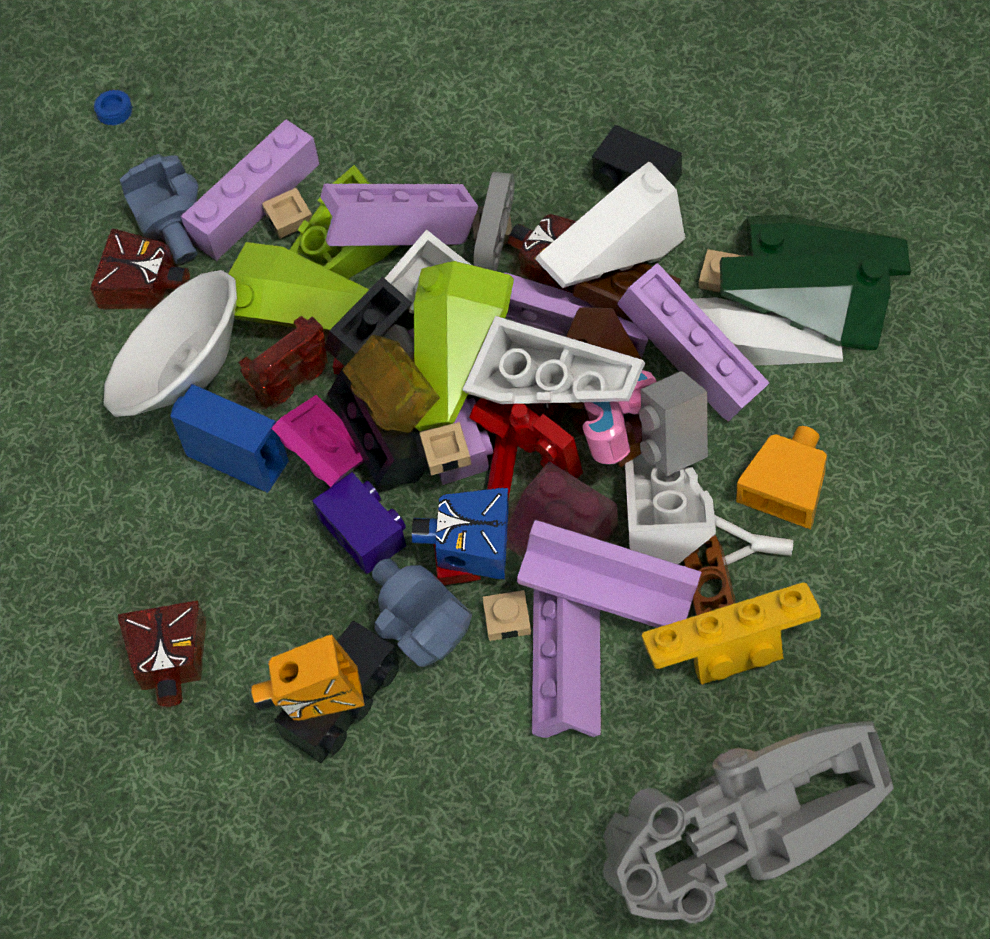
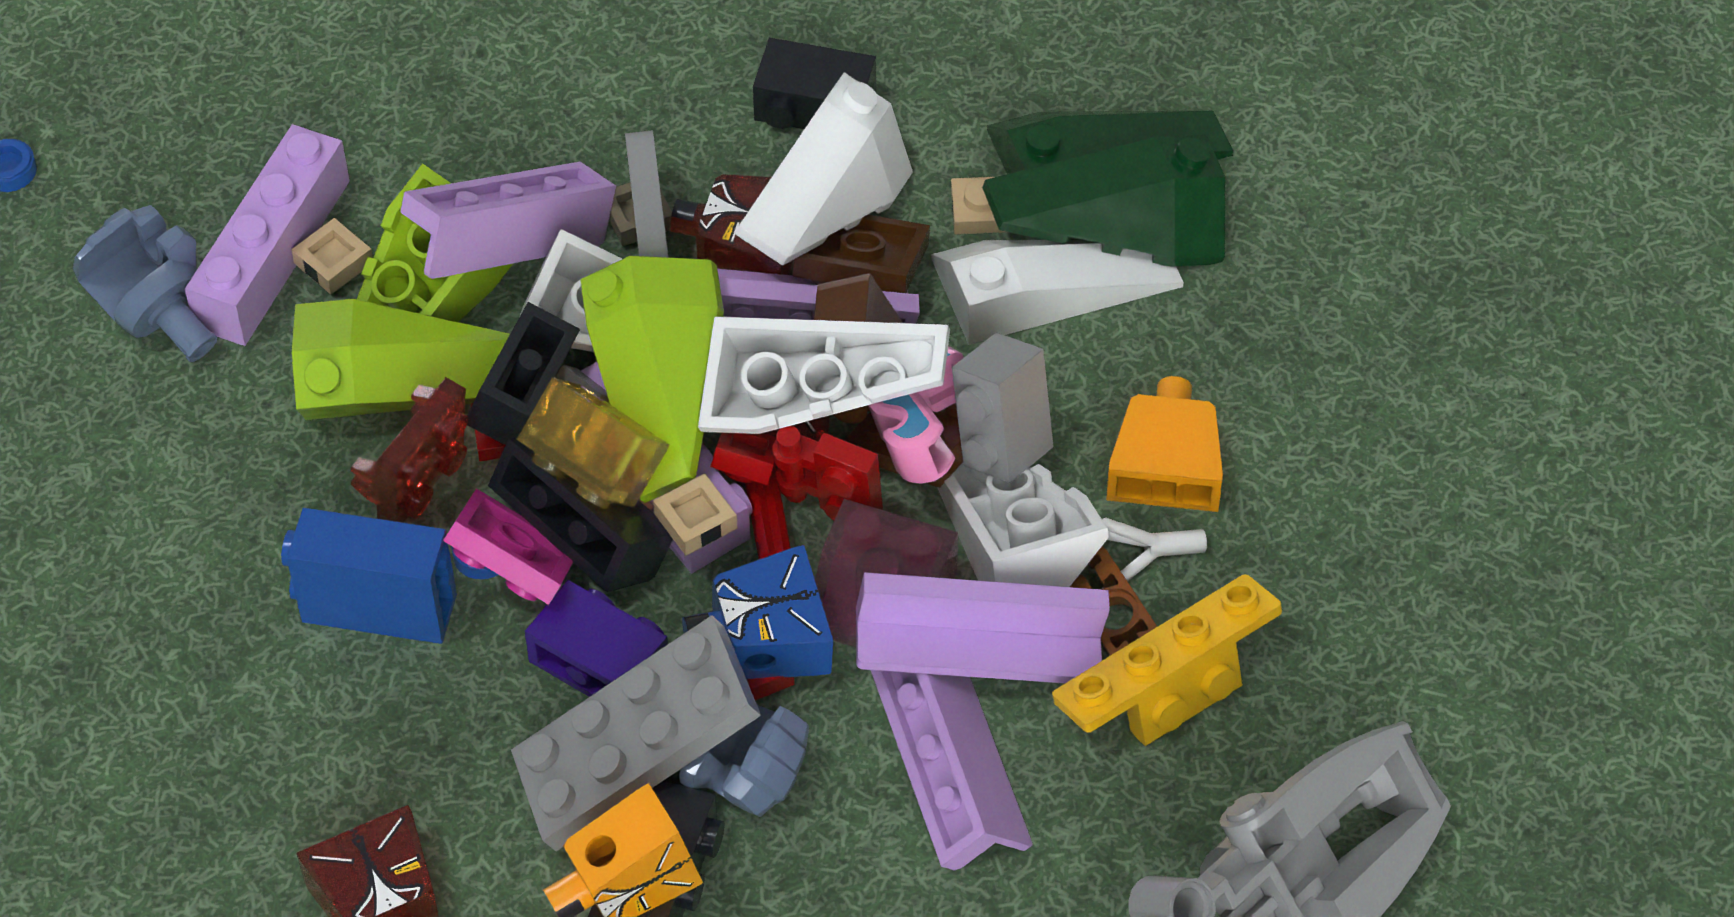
camera: 25 degrees left, 5 degrees down
(135, 272) = (137, 385): clear red torso -> none
(174, 346) = (243, 466): white dish -> none
(356, 589) = (635, 731): none -> light grey plate
(506, 615) = (848, 722): tan plate -> none
(692, 341) = (981, 293): lavender panel -> none

